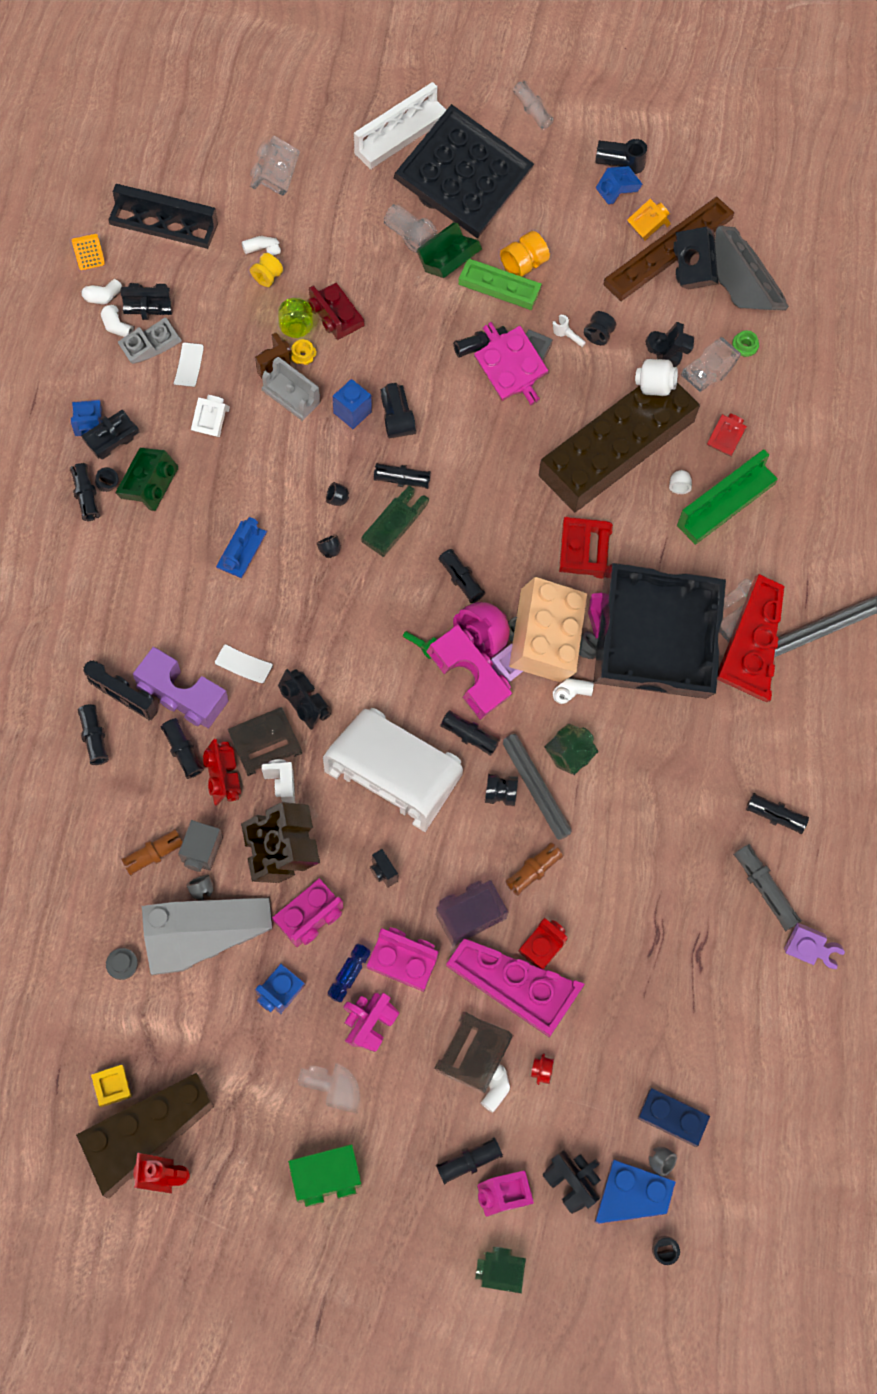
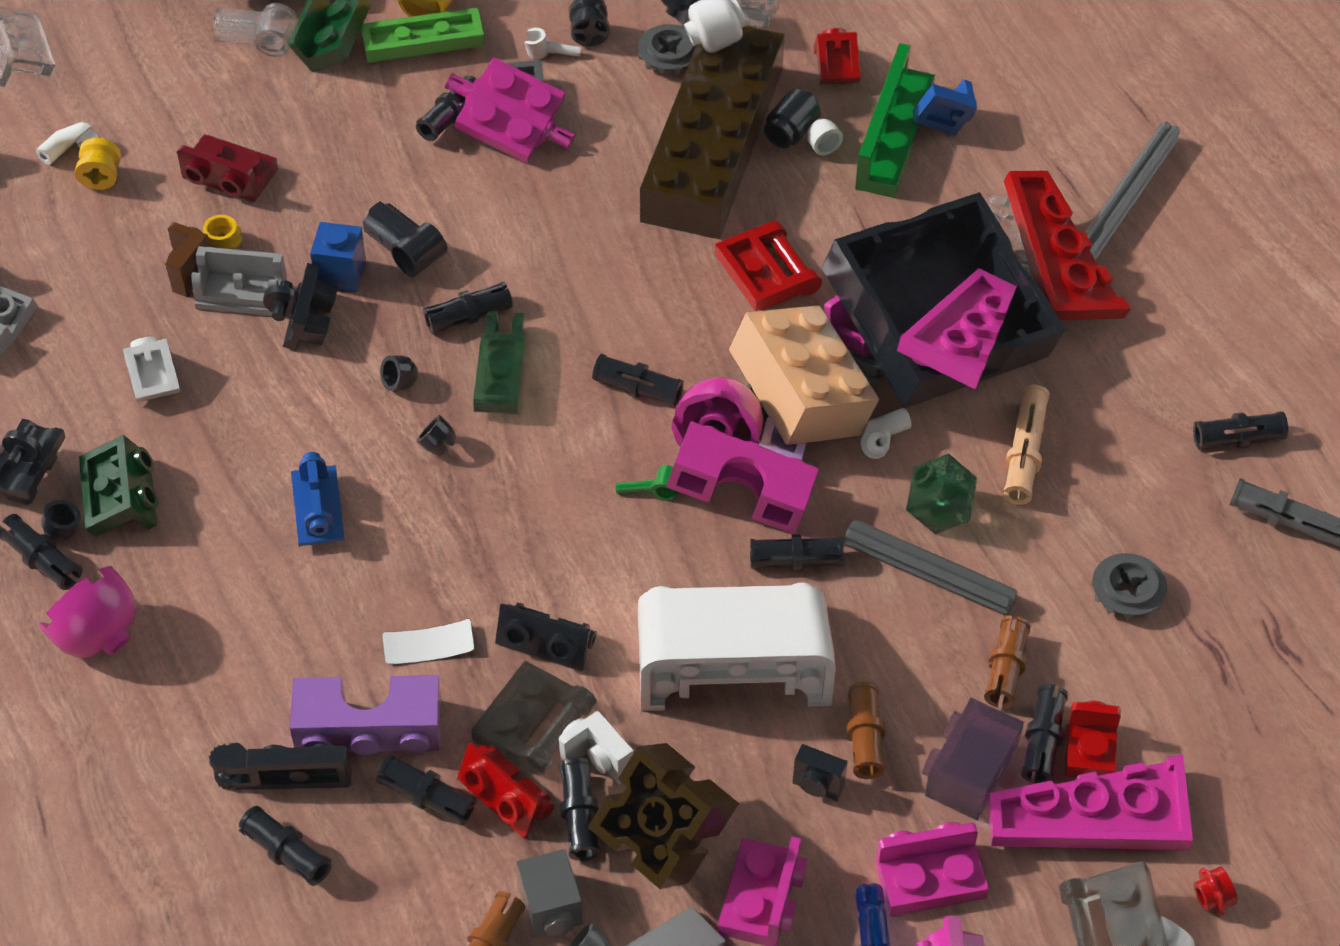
camera: 30 degrees left, 15 degrees down
(81, 548) = (92, 616): none -> dark pink cylinder
(189, 364) = (69, 328): white sticker -> none
(250, 806) = (579, 808): none -> black pin
(295, 317) = (181, 197): clear neon green head -> none
(323, 417) = (302, 323): none -> black hips
(428, 859) = (866, 730): none -> dark orange pin
(501, 790) = (892, 592): black wheel -> none
(521, 923) = (1044, 734): none -> black pin
(623, 368) = (668, 38): none -> dark grey gear
(638, 754) = (1020, 481): none -> light nougat pin
(648, 859) = (1134, 571): none -> dark grey gear
(650, 659) = (961, 328): none -> dark pink wing
(670, 459) = (791, 118): none -> black brick
(764, 507) = (946, 108): none -> blue bracket

